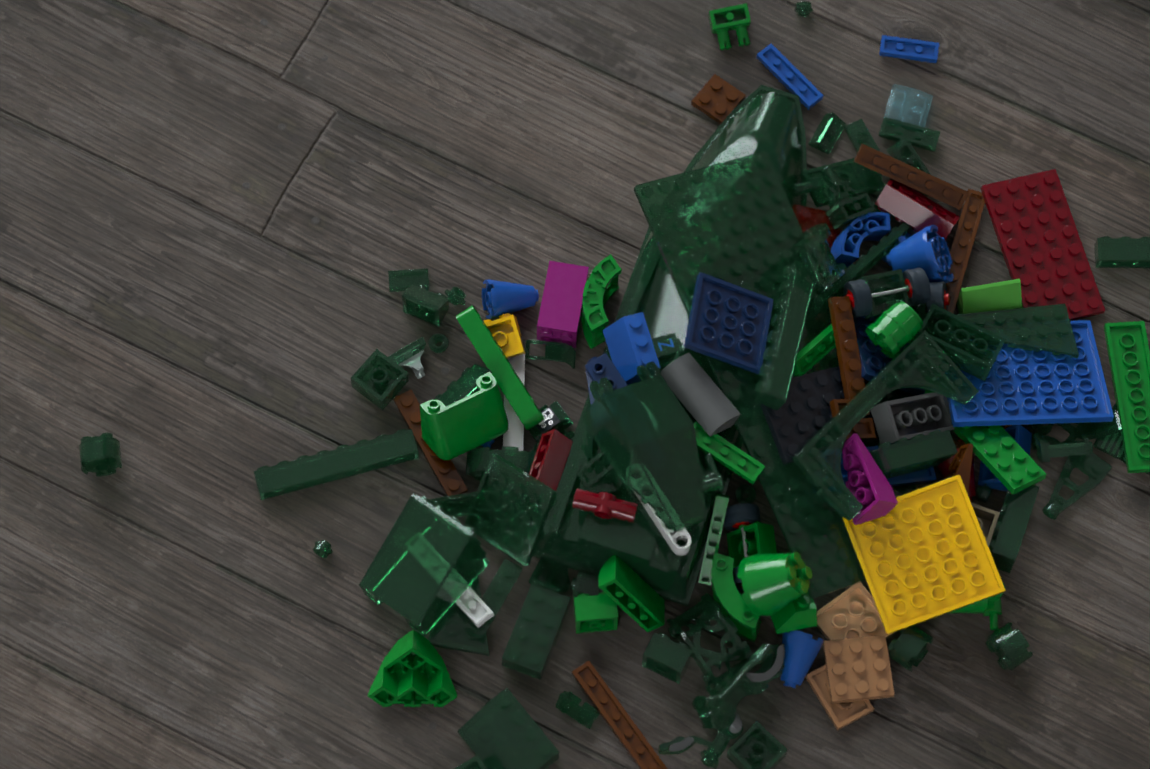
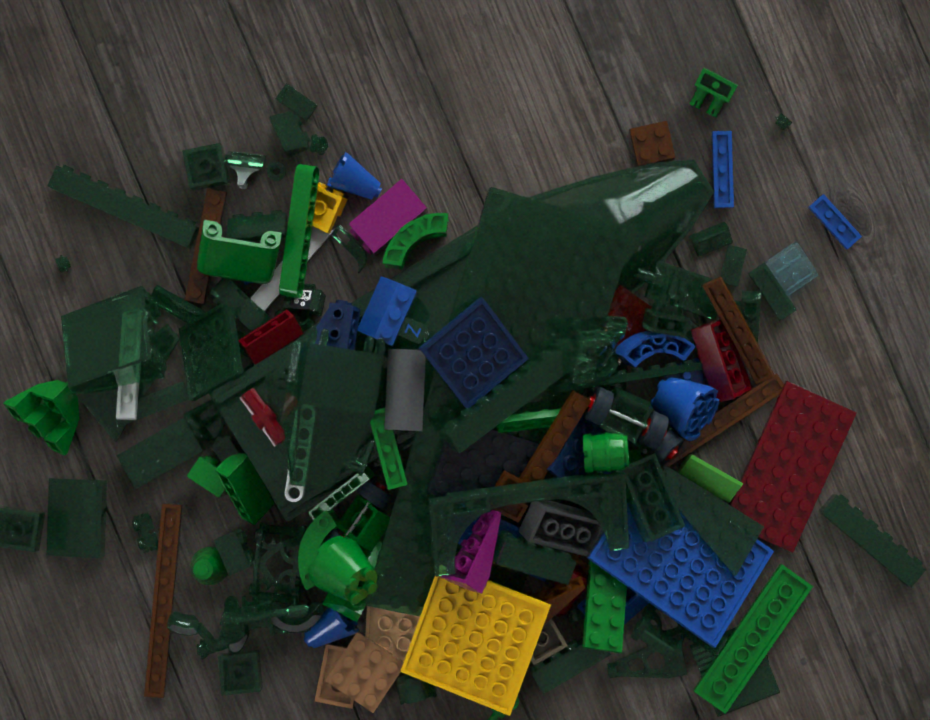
camera: 45 degrees right, 20 degrees up
(654, 693) = (208, 566): none -> green cone

